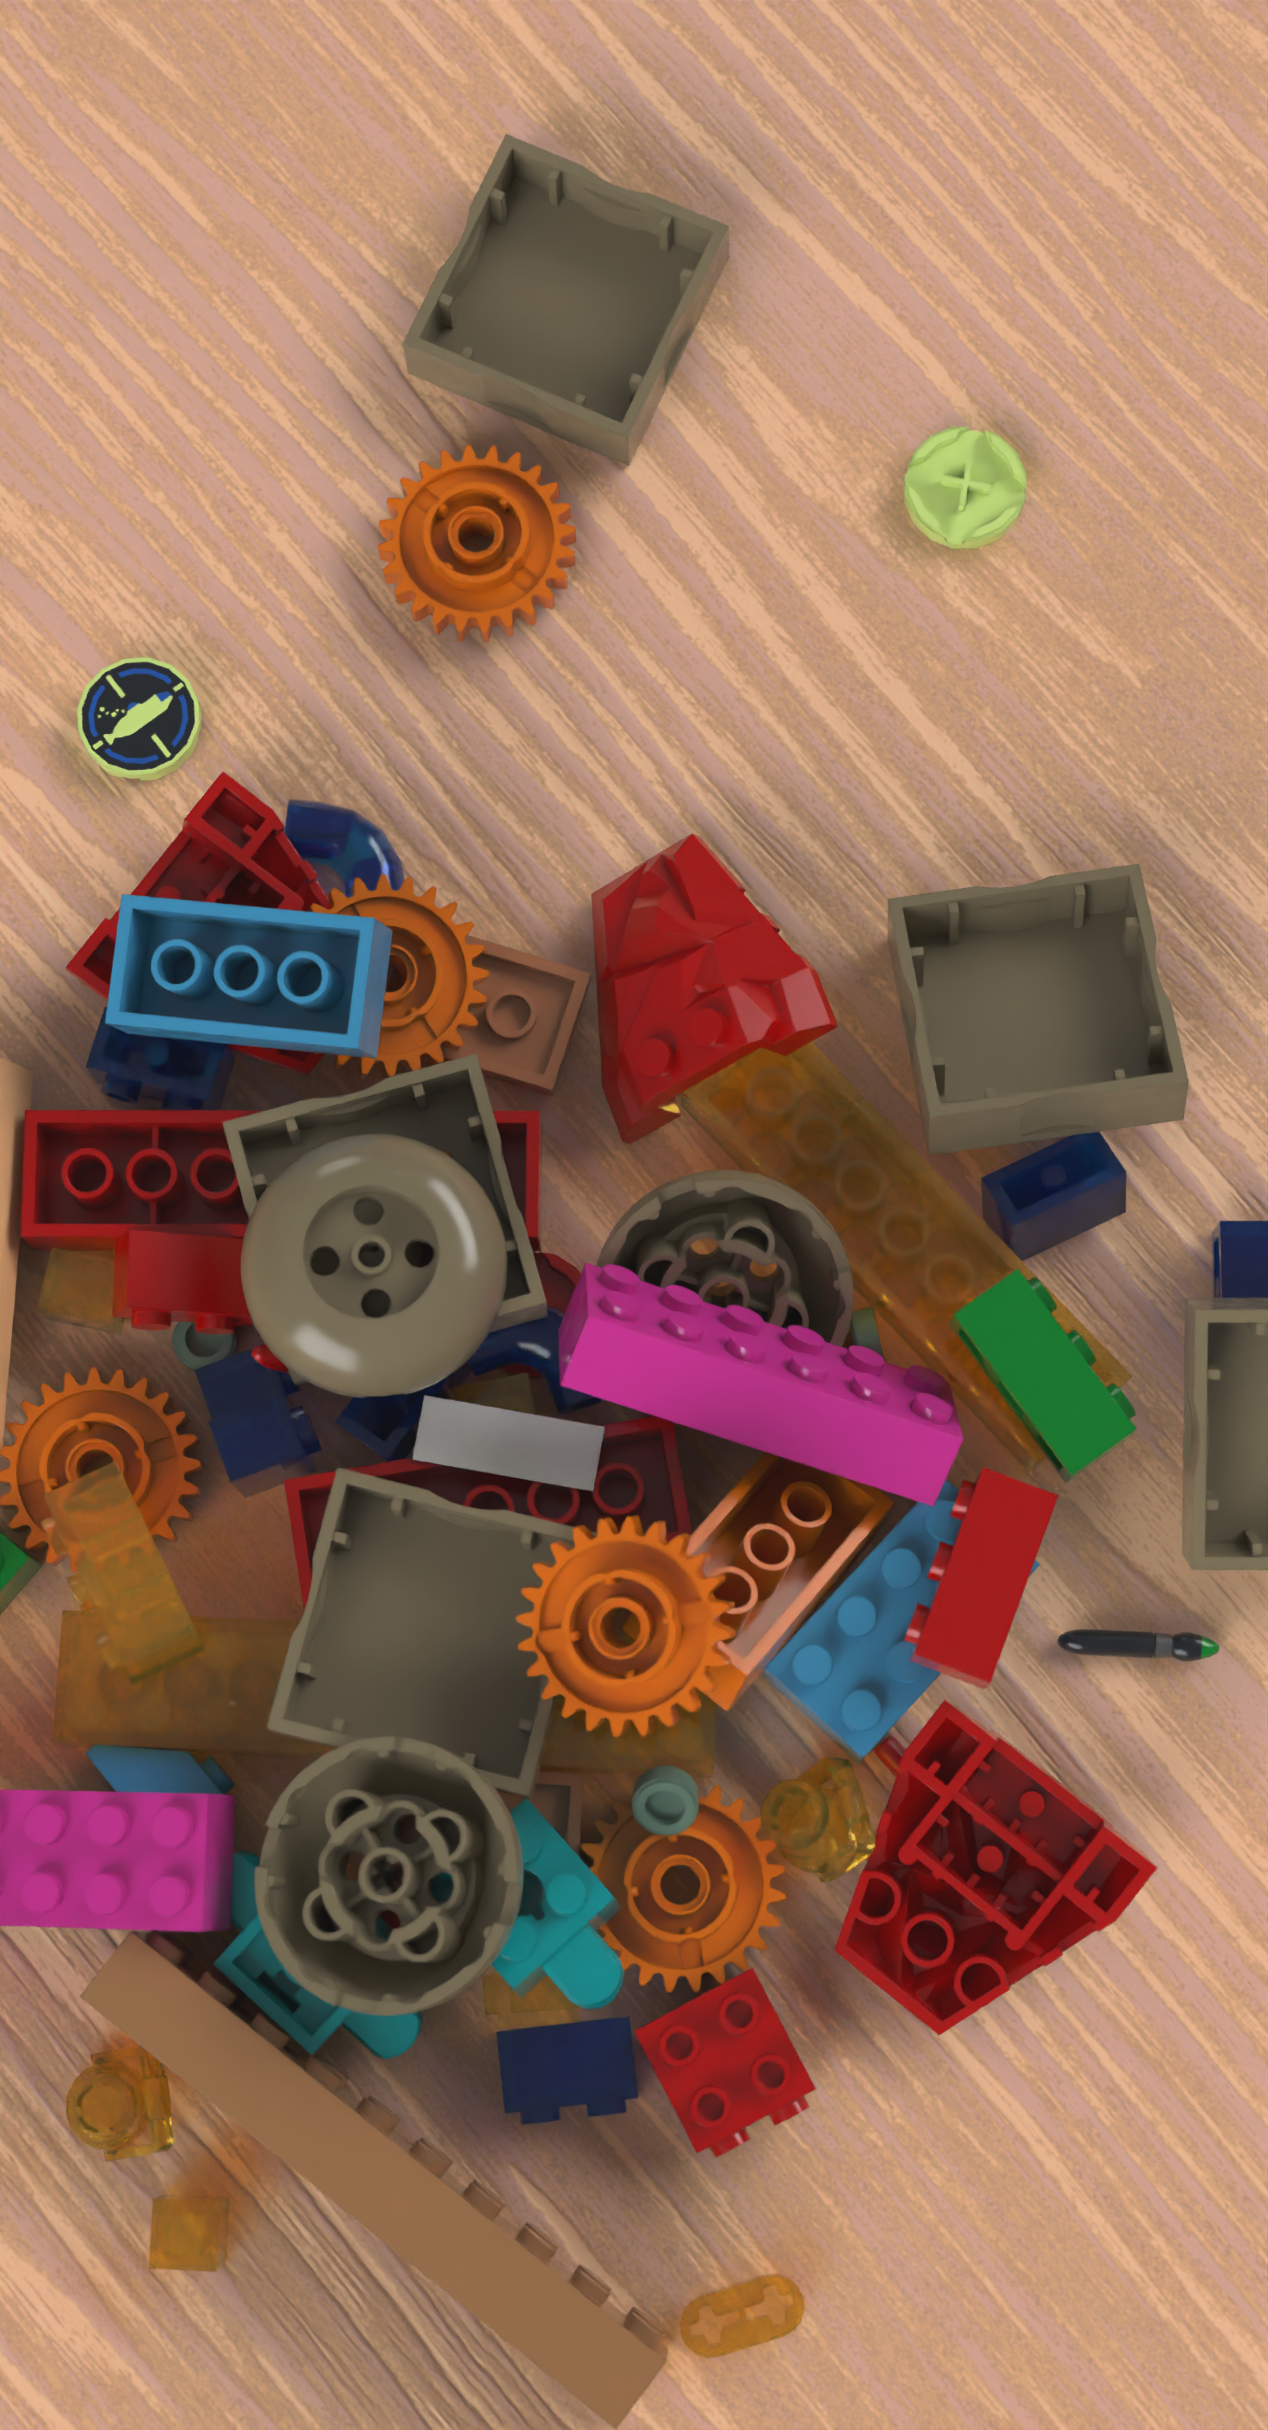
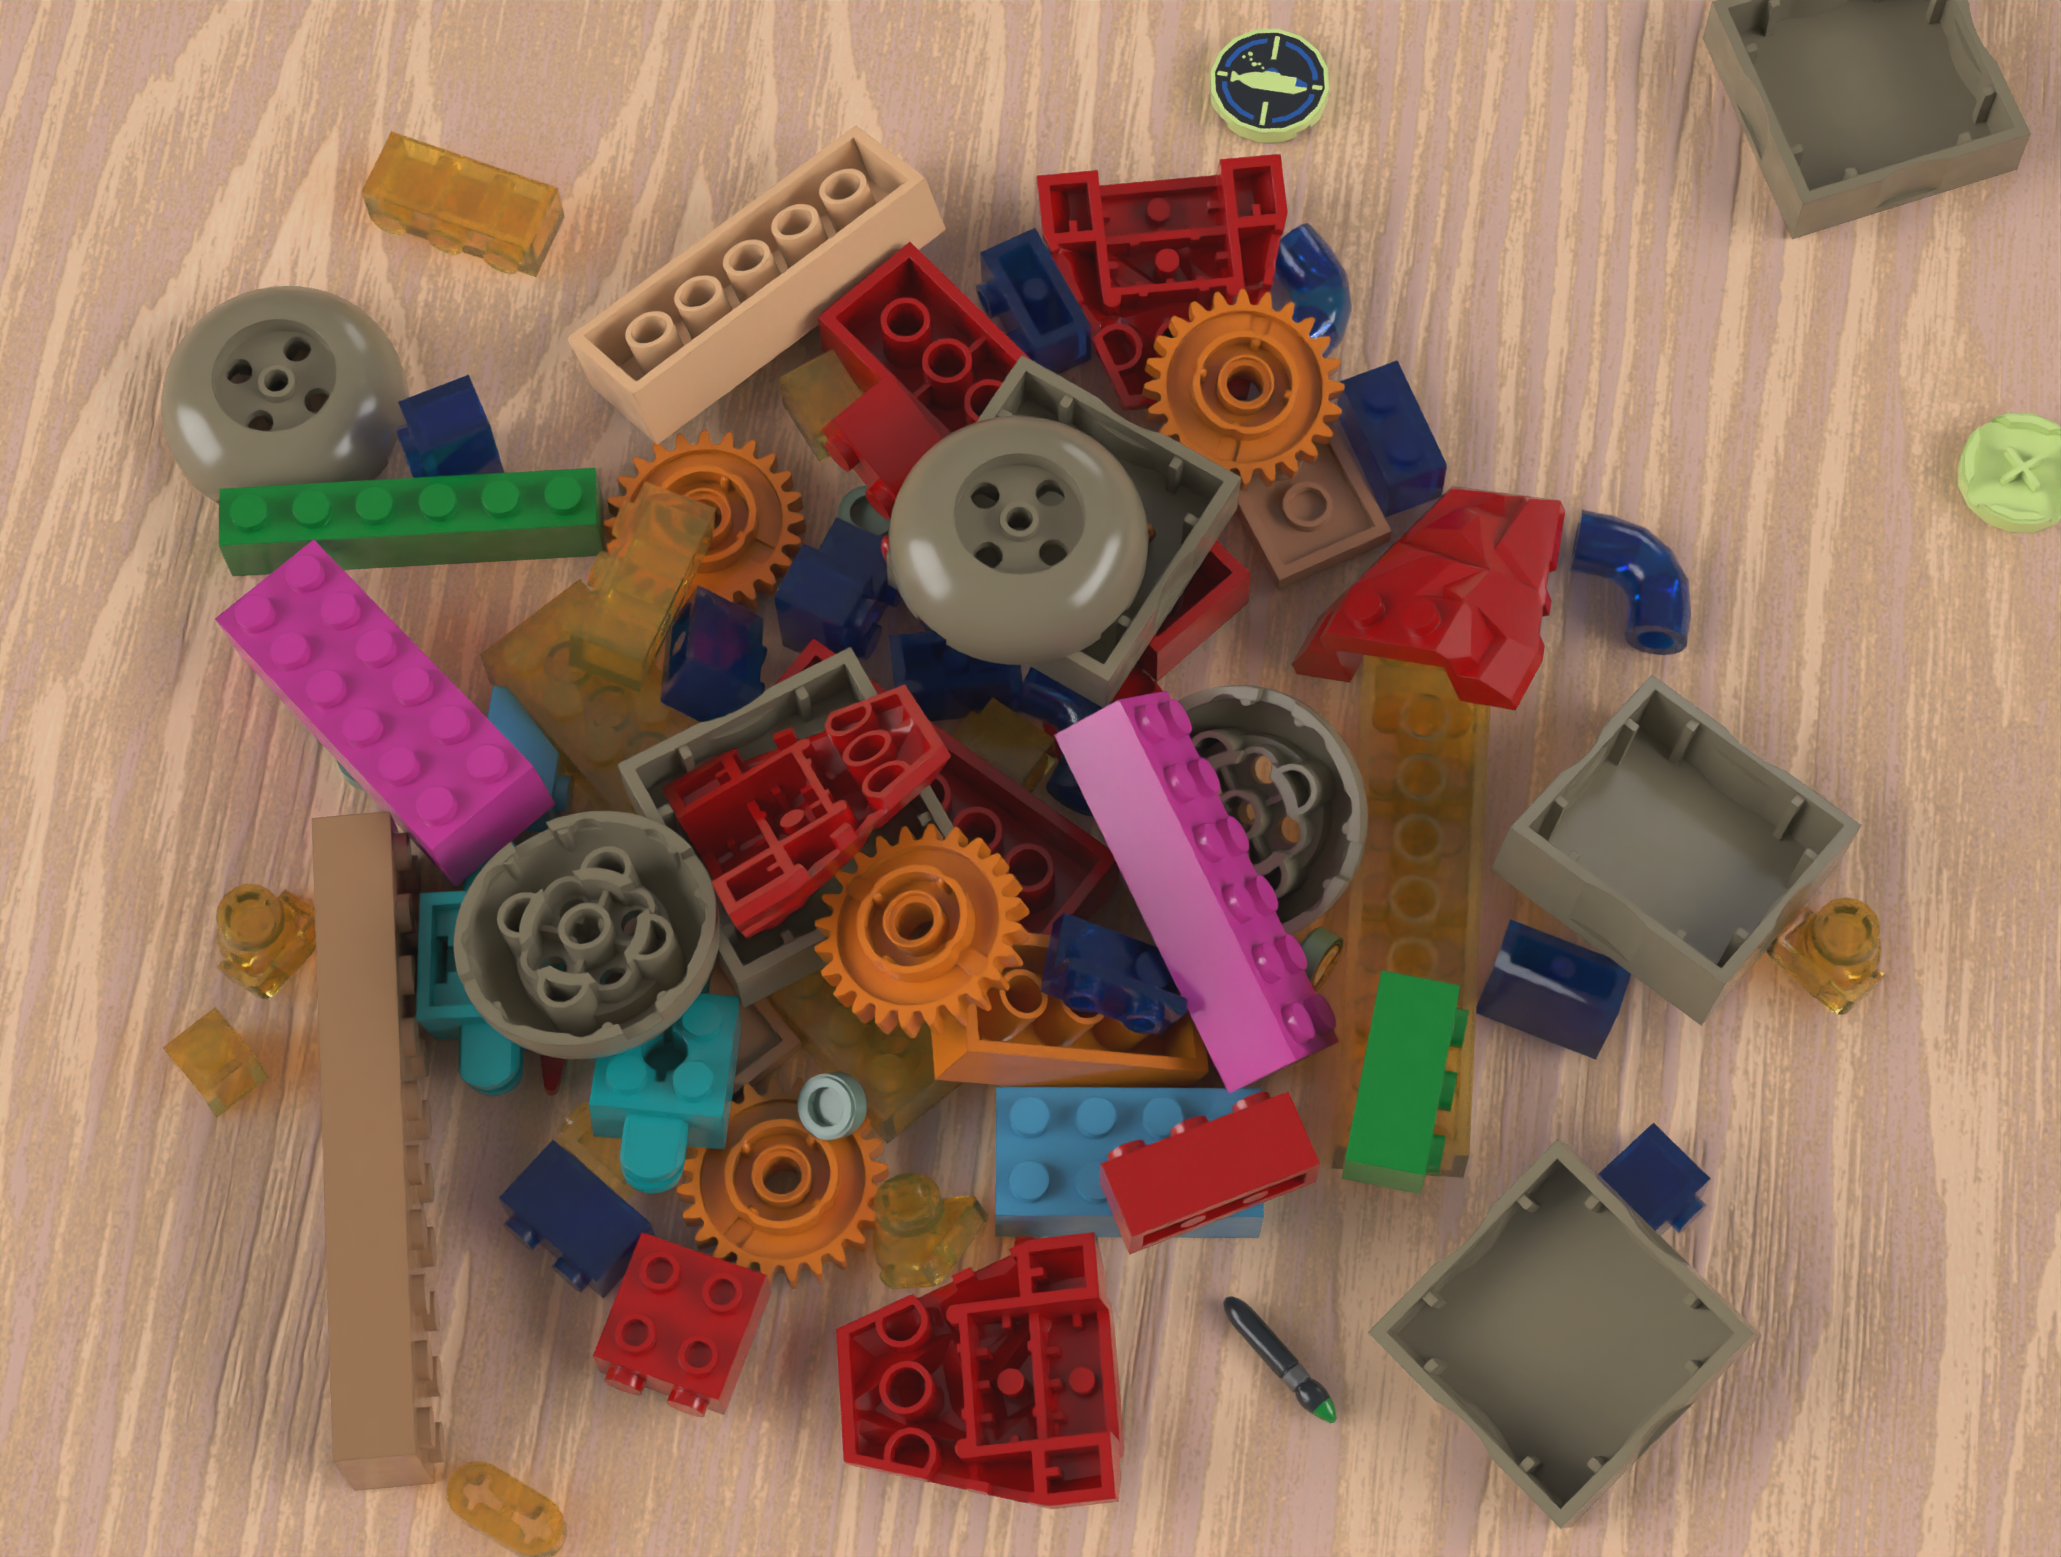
camera: 45 degrees right, 10 degrees down
(227, 1569) = (712, 657): none -> clear blue brick
(249, 976) = (1146, 284): dark azure brick -> none
(437, 1619) = (804, 810): none -> red wedge
(469, 501) = (1616, 224): orange gear -> none
(508, 1443) = (990, 765): white sticker -> none
(519, 903) = (1391, 439): none -> clear blue brick
(770, 1509) = (1111, 976): none -> clear blue bracket
(793, 823) = (1646, 572): none -> clear blue cylinder
(1200, 968) = (1832, 952): none -> clear yellow piece

